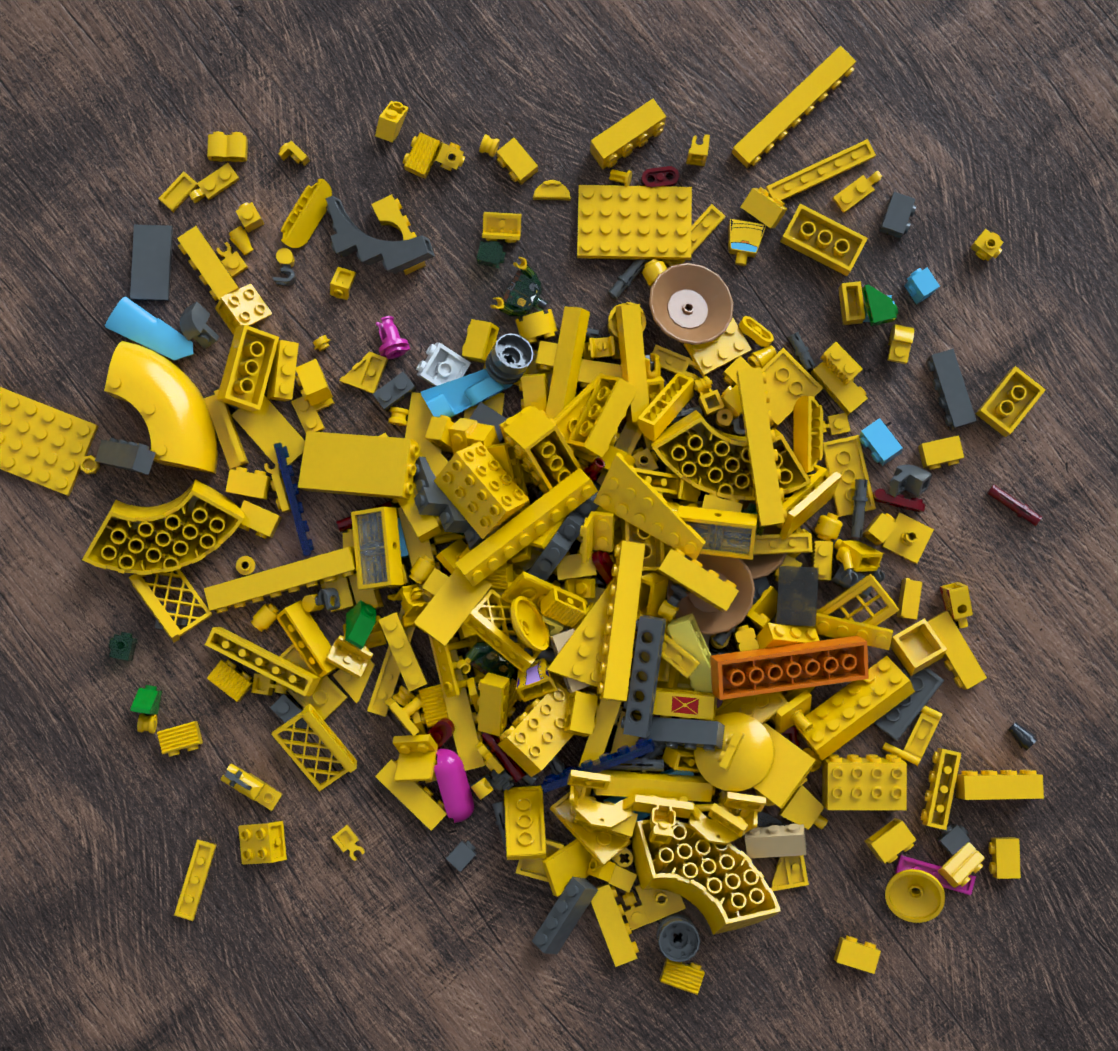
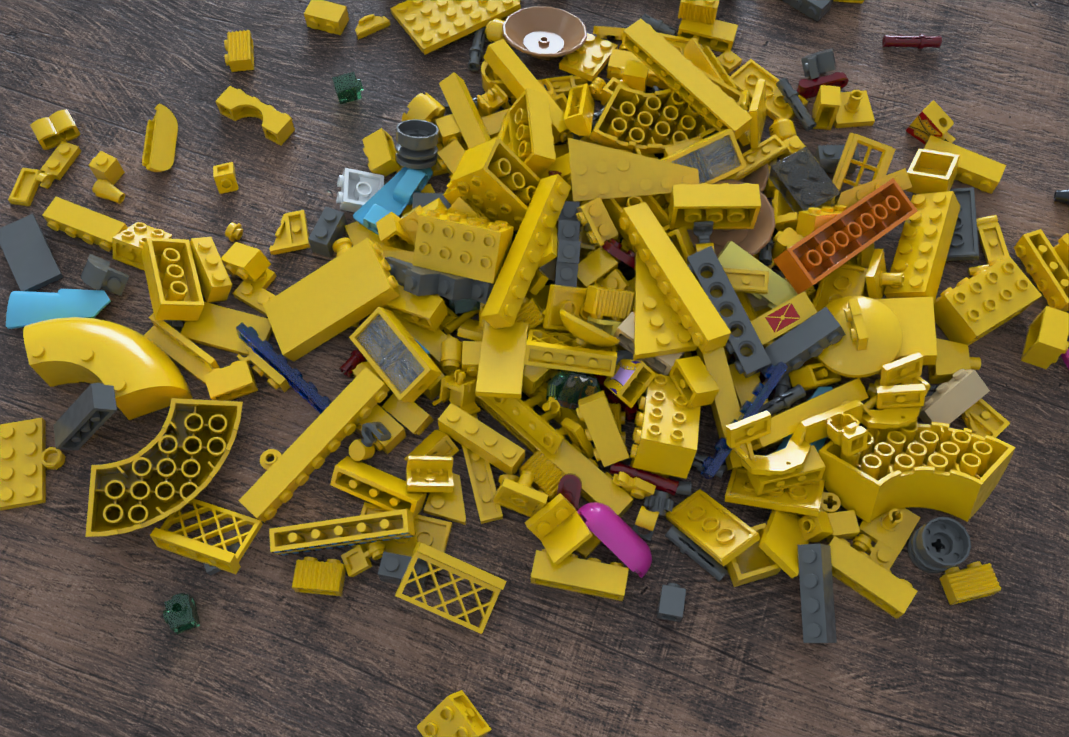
camera: 30 degrees left, 20 degrees down
(147, 700) = (238, 652): green slope -> none
(147, 723) = (251, 677): yellow wheel -> none
(179, 738) = (297, 670): yellow brick -> none
(232, 262) = (110, 210): yellow plate -> none
(251, 786) = (406, 673): yellow plate -> none
(259, 520) = (261, 409): yellow brick -> none
(265, 617) = (320, 495): yellow brick -> none
(286, 260) = (162, 188): leg -> none
(294, 152) = (121, 101): yellow bracket -> none
(346, 840) = (542, 666): yellow plate -> none
(360, 623) = (421, 435): green slope -> none
(391, 121) = (197, 40): yellow slope -> none
(392, 345) = (303, 195): dark pink piece -> none
(396, 254) = (261, 119): dark grey arch -> none
(443, 153) = (264, 37): yellow brick -> none
(489, 145) = (295, 17): yellow wheel -> none
(501, 226) = (344, 63): yellow bracket -> none
(522, 293) = (392, 99): torso -> none
(859, 558) = (827, 132): yellow torso -> none
(880, 442) = (773, 50): medium azure brick -> none
(909, 599) = (899, 158): yellow panel -> none
(941, 452) = (825, 34): yellow brick -> none

